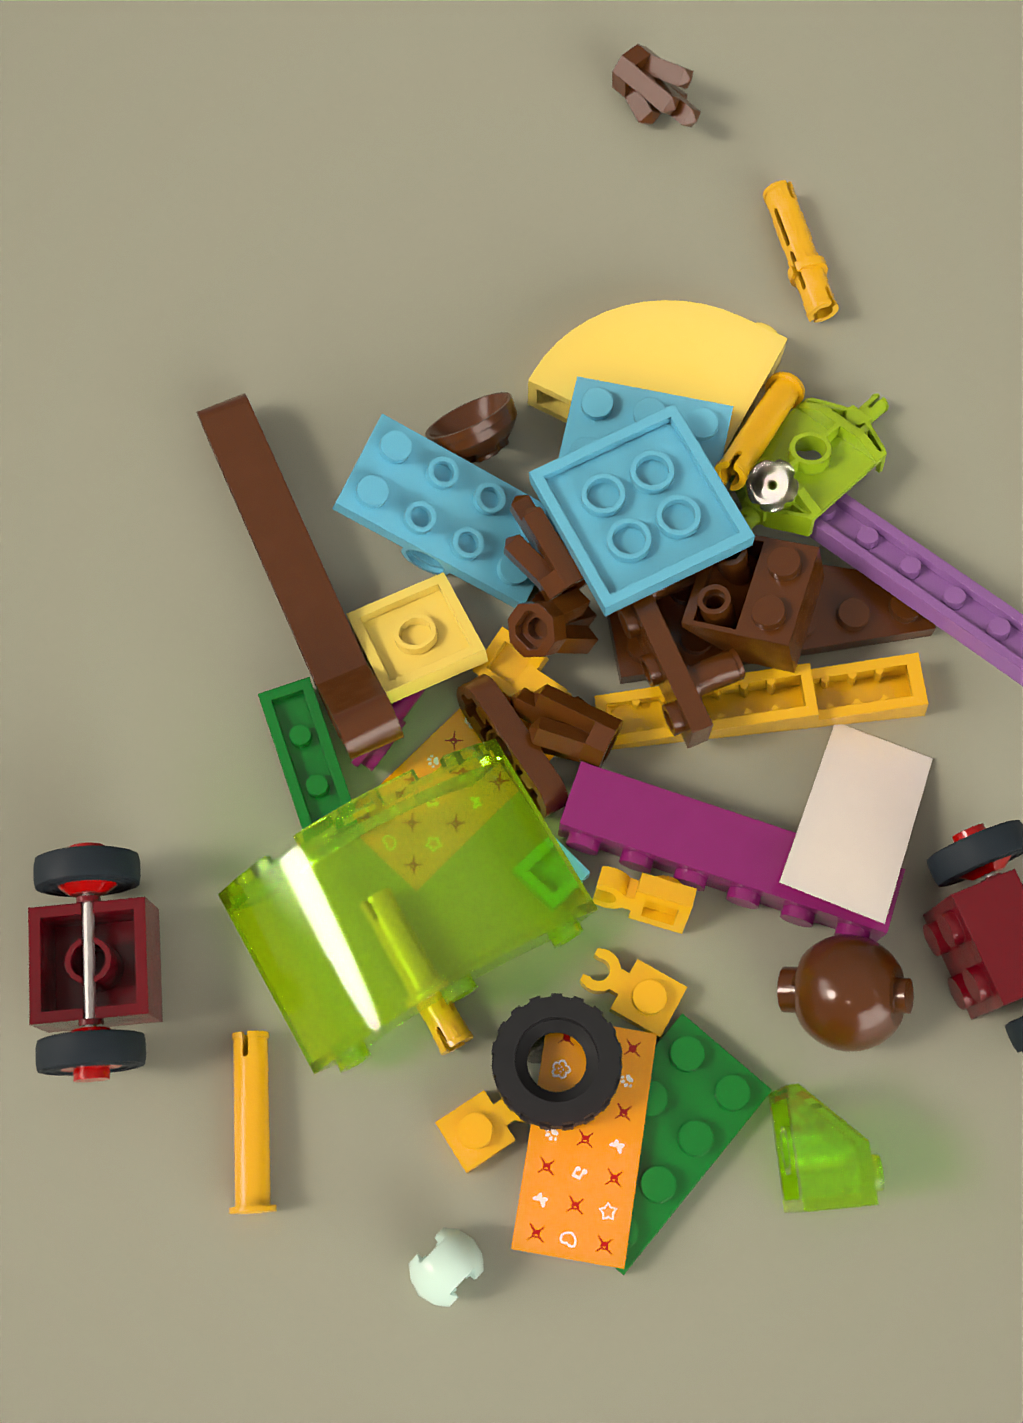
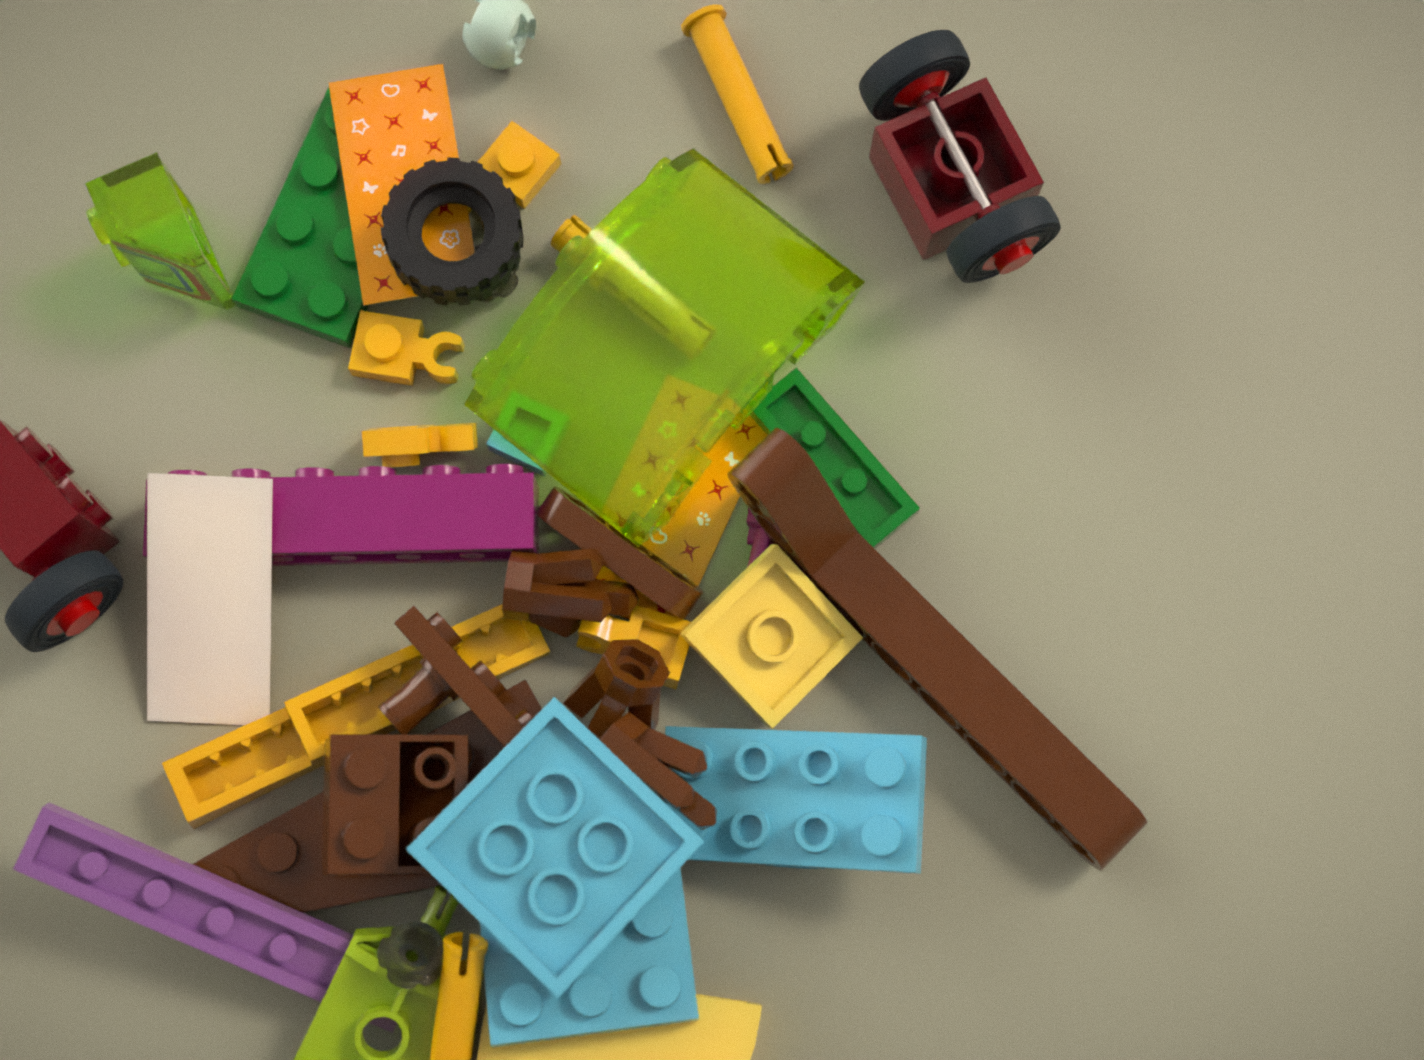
camera: 160 degrees right, 5 degrees up
(477, 427) = (818, 931): reddish brown piece -> none
(846, 992) = (175, 407): reddish brown brick -> none

